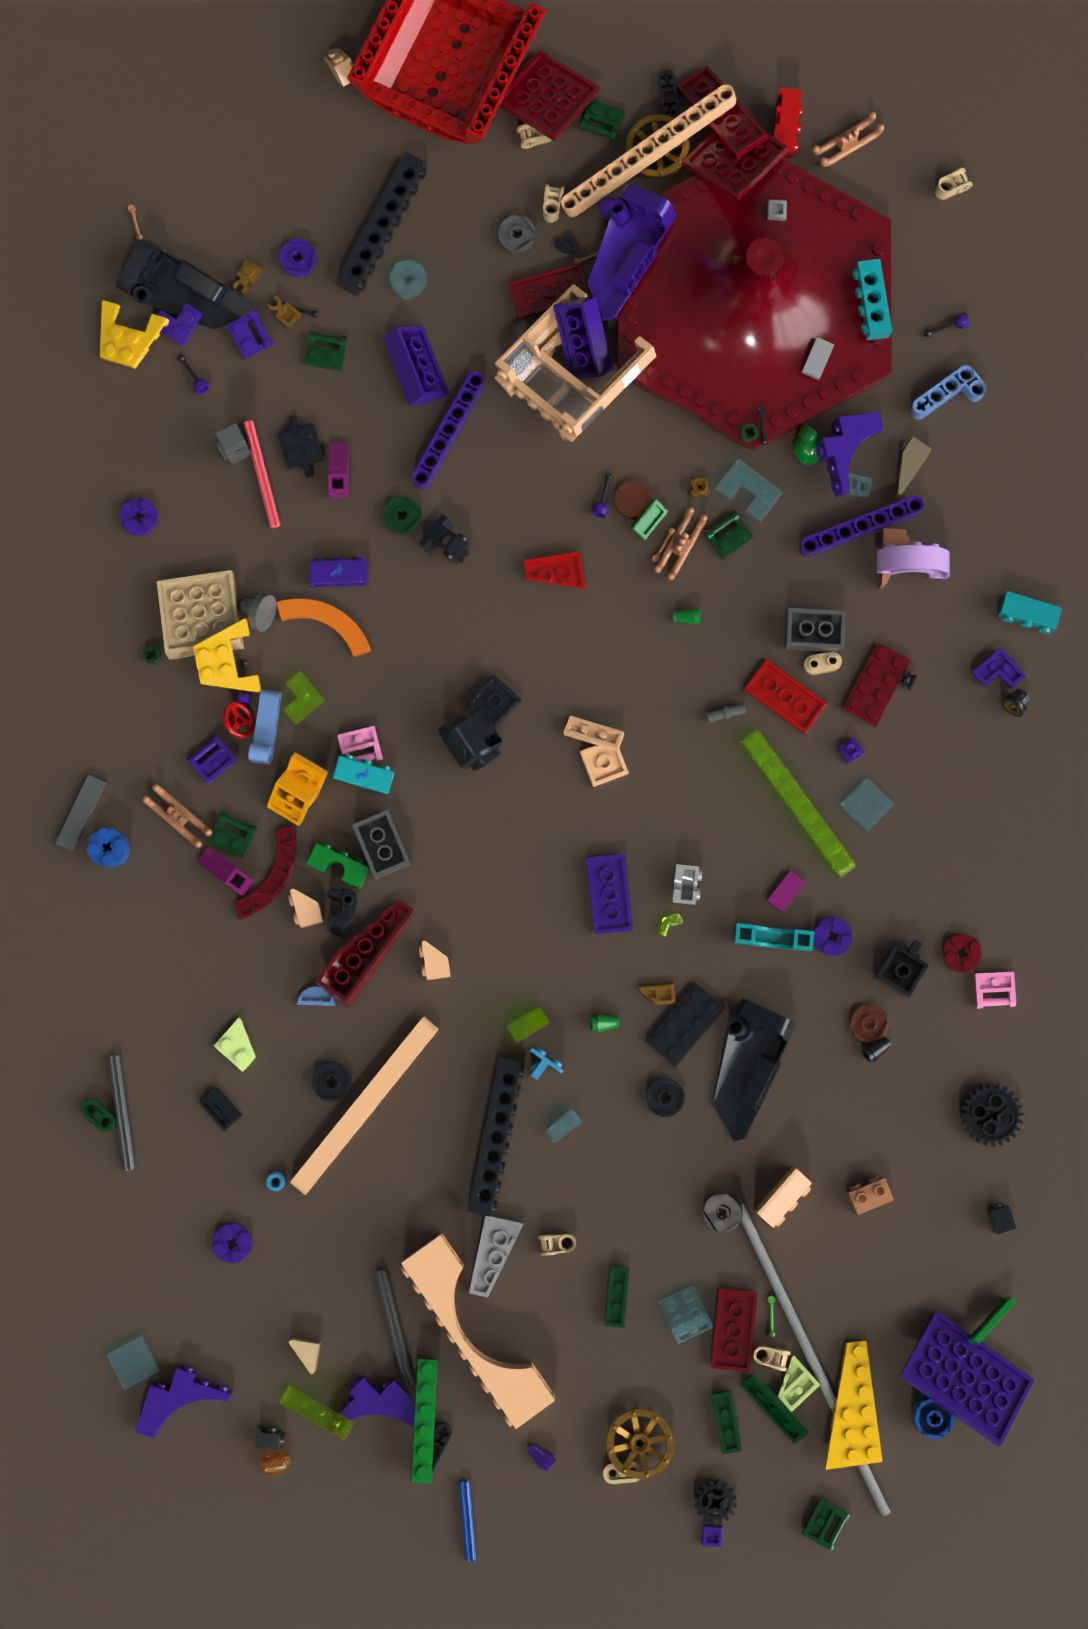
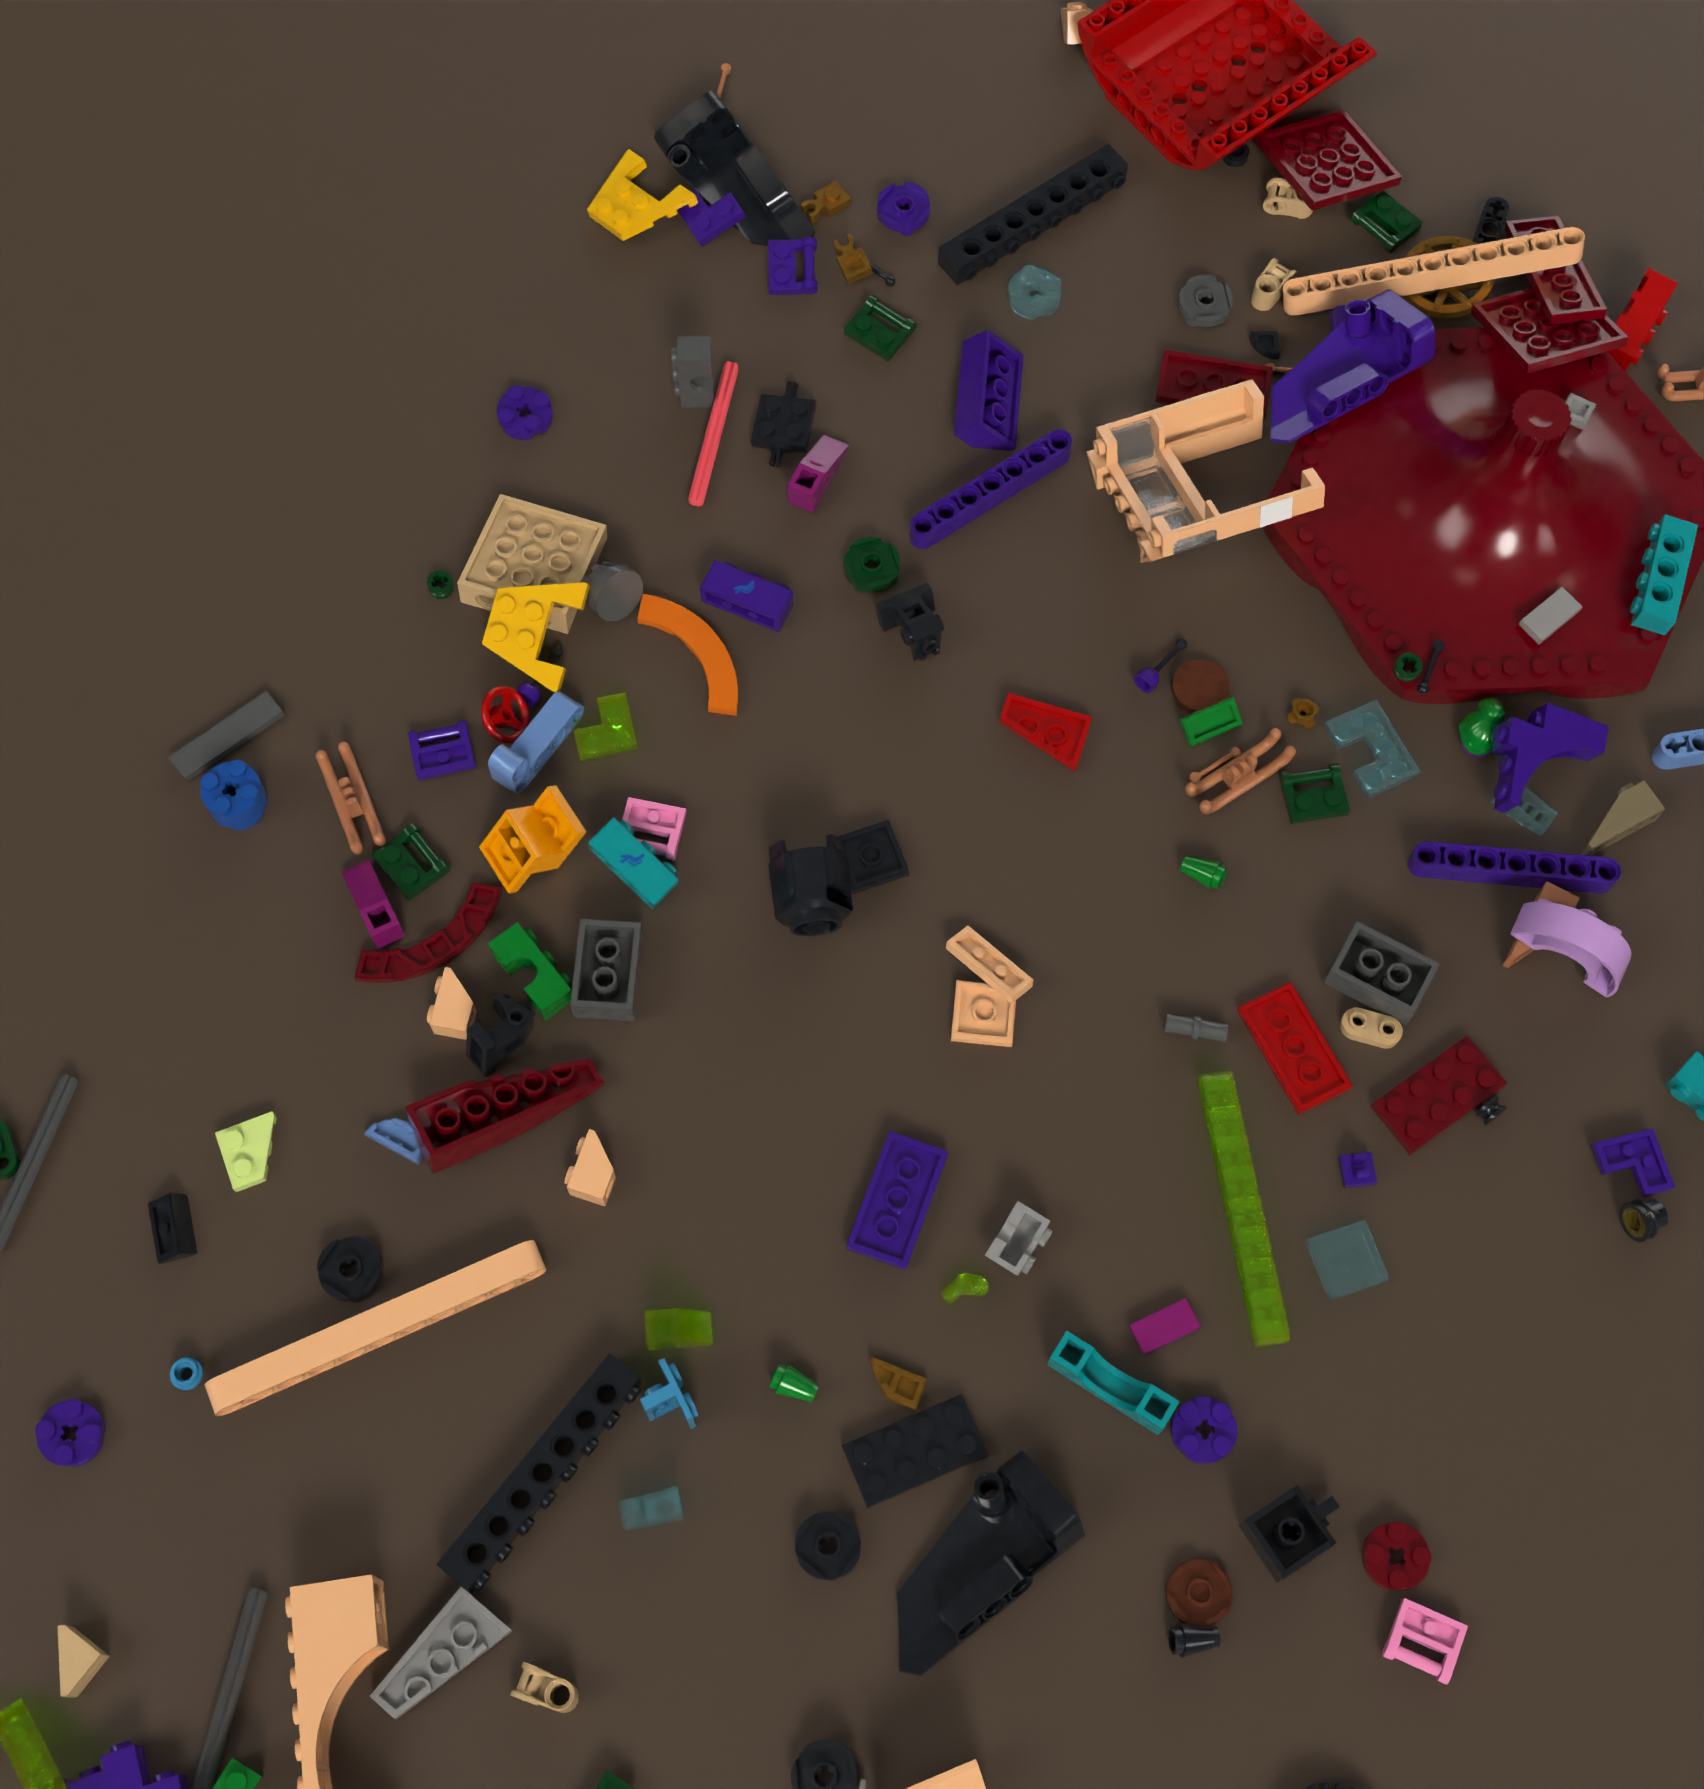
camera: 25 degrees right, 15 degrees down
(200, 385) = (694, 291): hinge -> none
(583, 337) = (1233, 447): dark purple slope -> none

